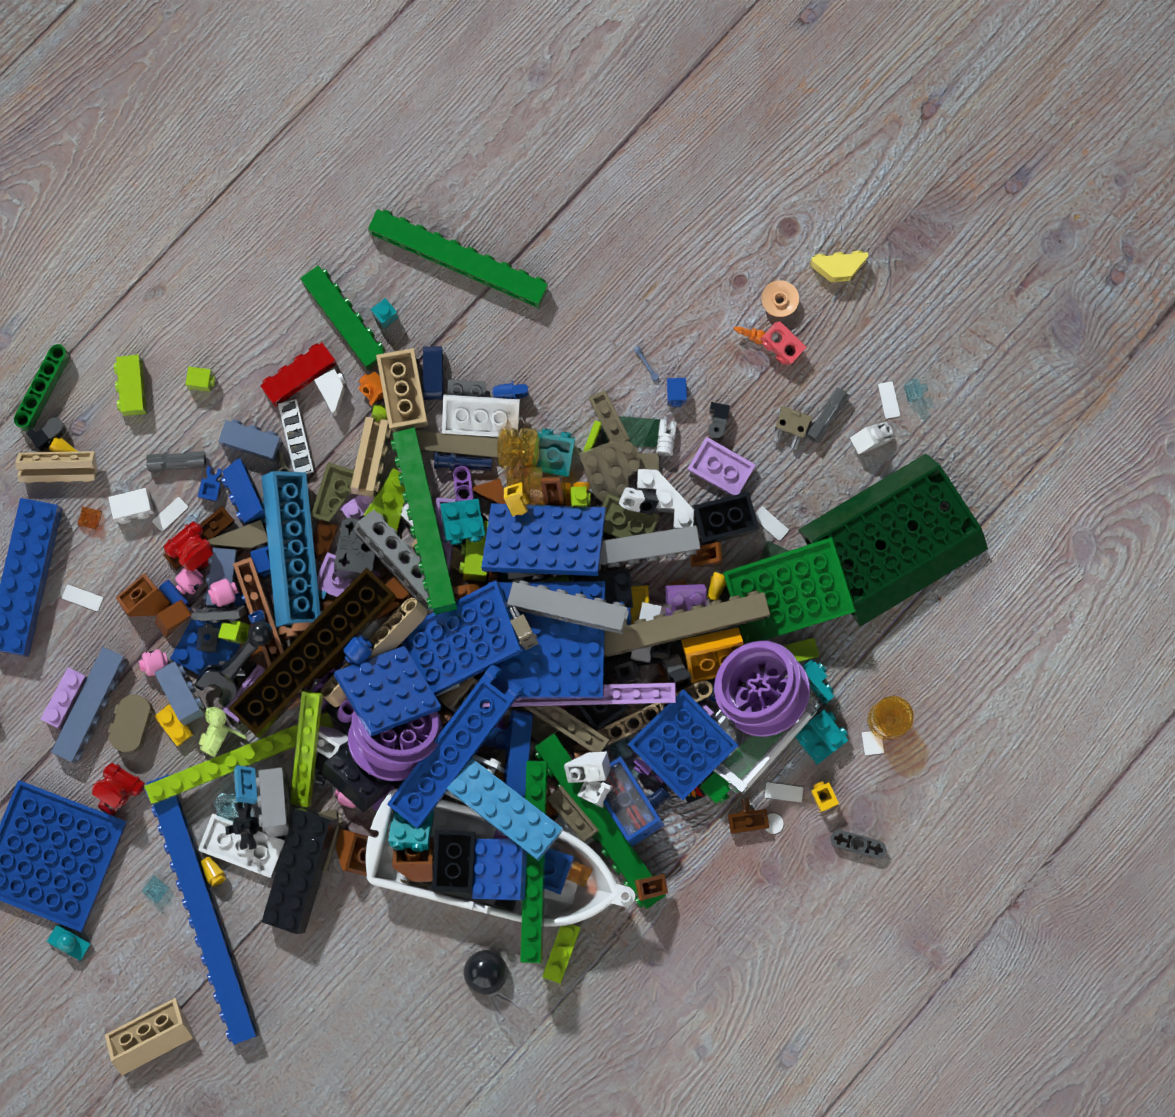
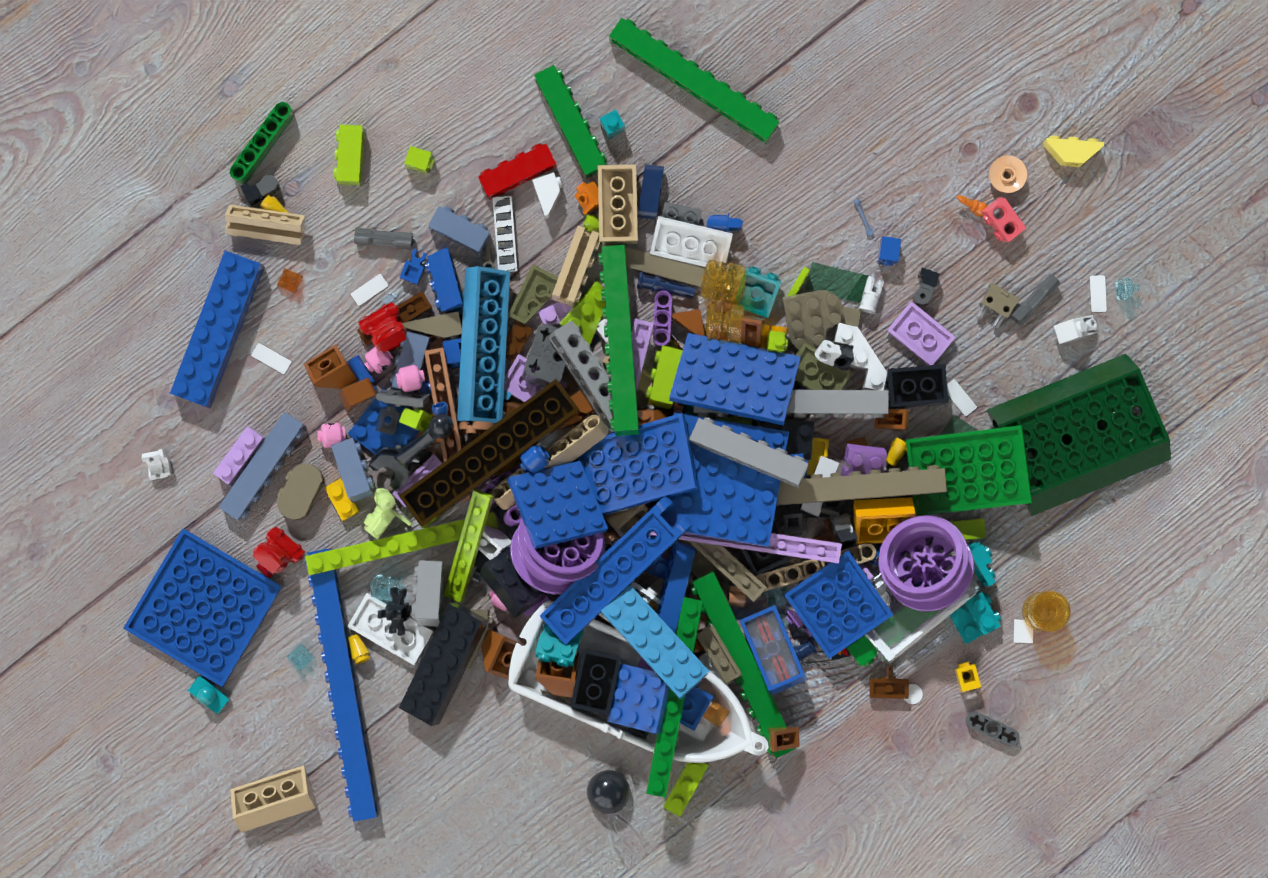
camera: 10 degrees right, 5 degrees up
(131, 505) = (332, 275): white brick -> none
(245, 784) = (403, 571): dark azure plate -> none
(462, 521) = (656, 347): teal plate -> none
(516, 499) = (714, 334): yellow brick -> none
(523, 630) = (701, 467): dark tan piece -> none
(588, 767) = (742, 612): white slope -> none
(594, 792) = (744, 636): white piece -> none
(608, 417) = (817, 265): dark tan tile -> none
(783, 792) = (928, 665): white sticker -> none

